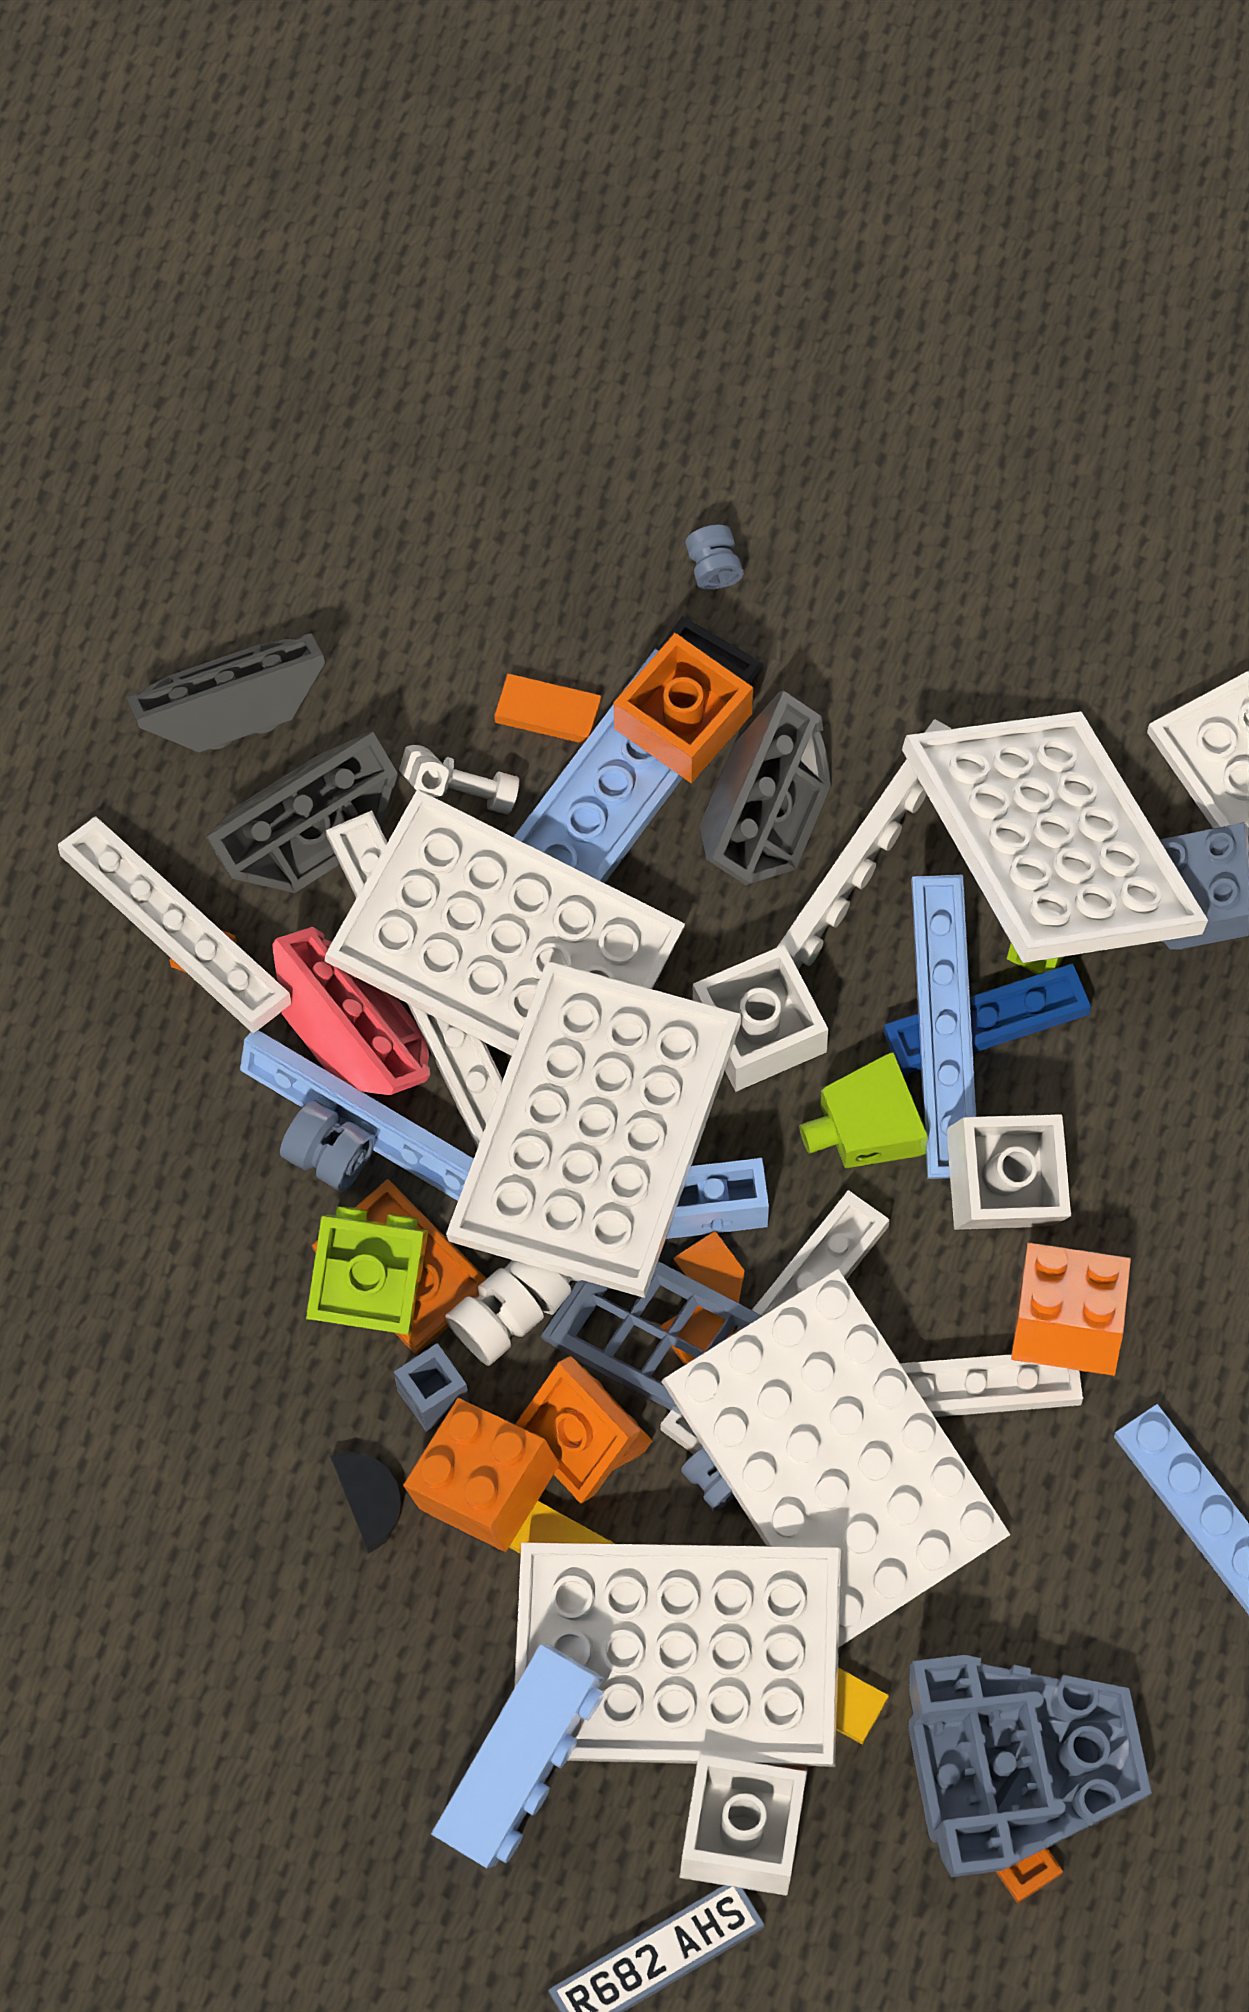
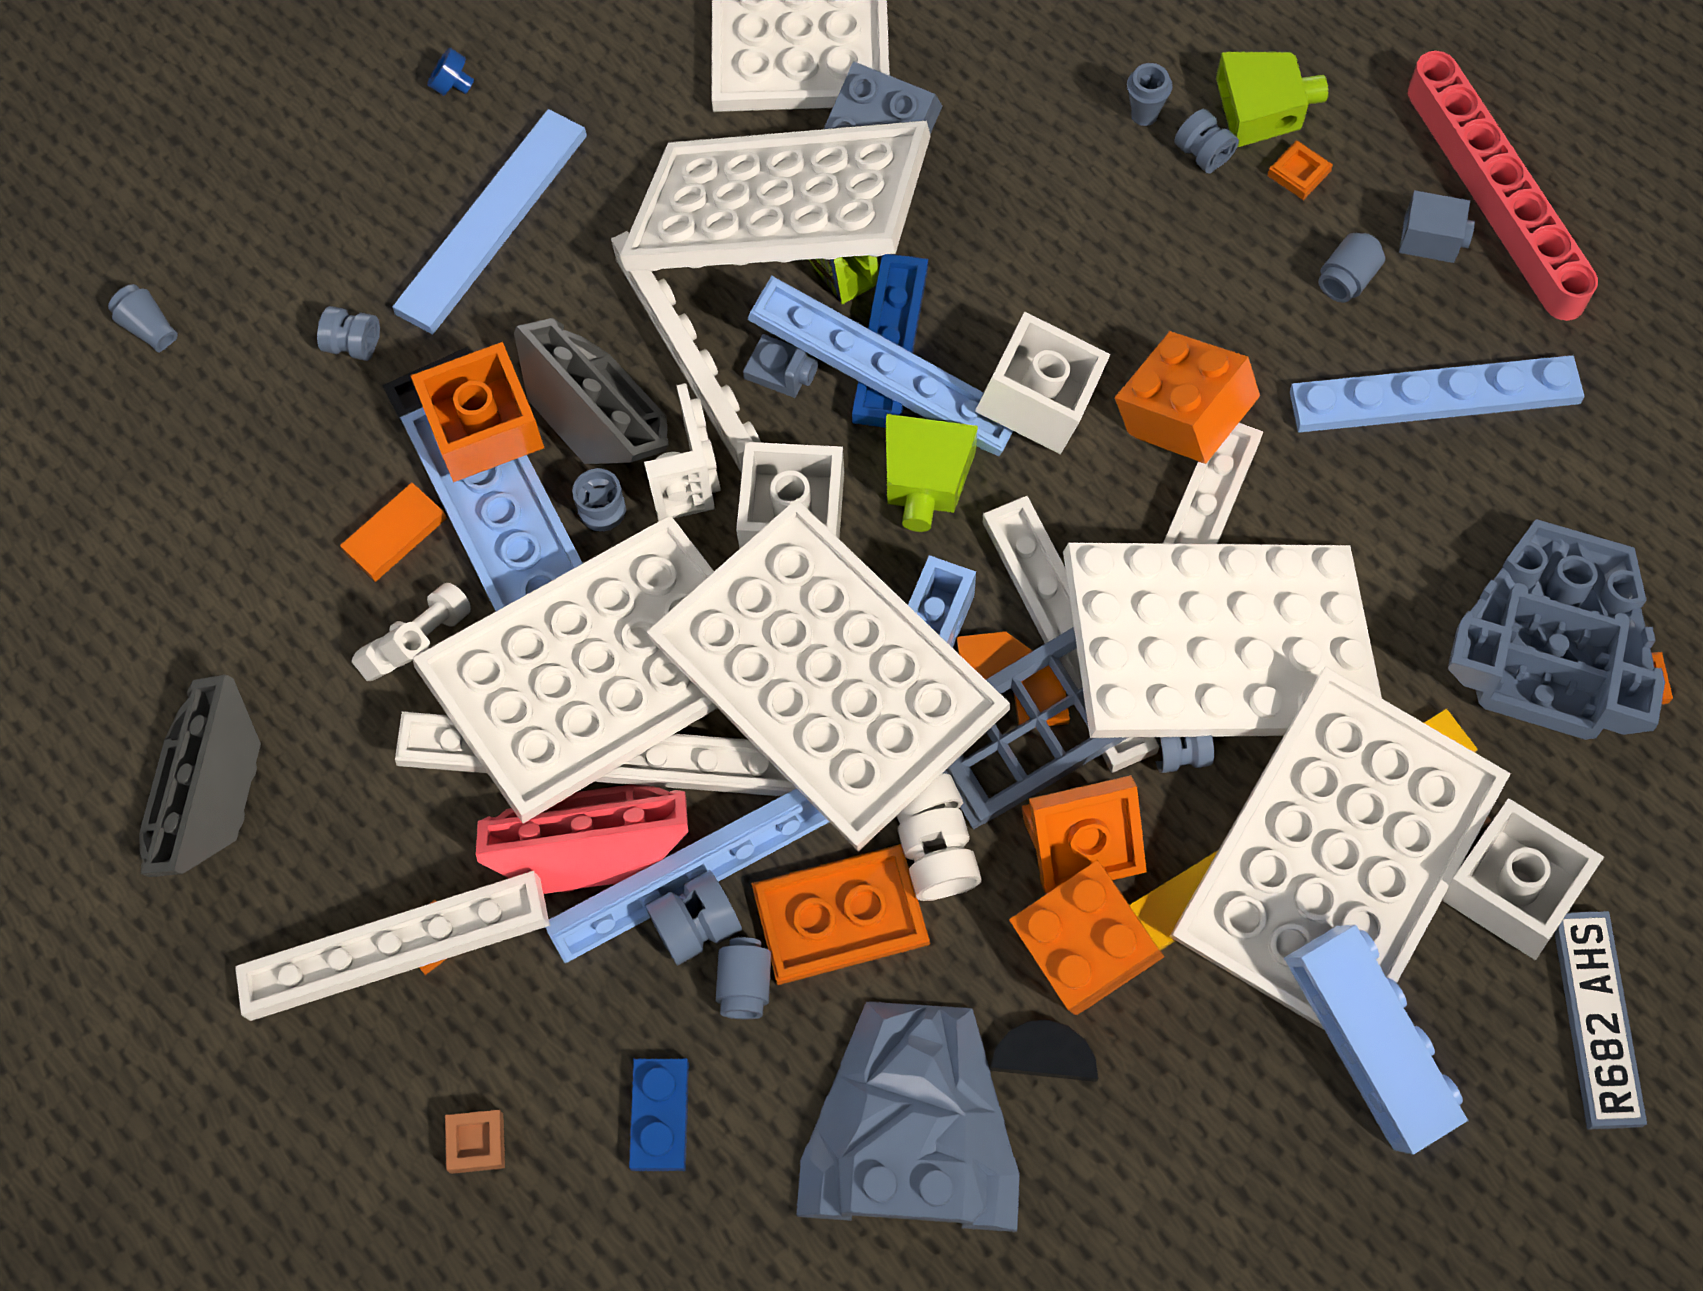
camera: 60 degrees left, 0 degrees up
(52, 1082) = (475, 1141): none -> nougat plate
(151, 1213) = (659, 1115): none -> blue plate
(249, 1420) = (912, 1126): none -> sand blue wedge
(281, 830) = (360, 798): dark grey wedge -> none
(296, 1215) = (743, 978): none -> sand blue brick
(367, 1271) = (839, 939): lime plate -> none
(430, 1386) = (980, 940): sand blue brick -> none
(630, 382) = (141, 316): none -> sand blue cone
(672, 847) = (599, 489): none -> sand blue wheel
(740, 926) = (685, 481): none -> white bracket
(896, 939) = (780, 366): none -> sand blue bracket
(908, 607) = (489, 222): none -> light blue tile
(1038, 481) = (449, 74): none -> blue tile

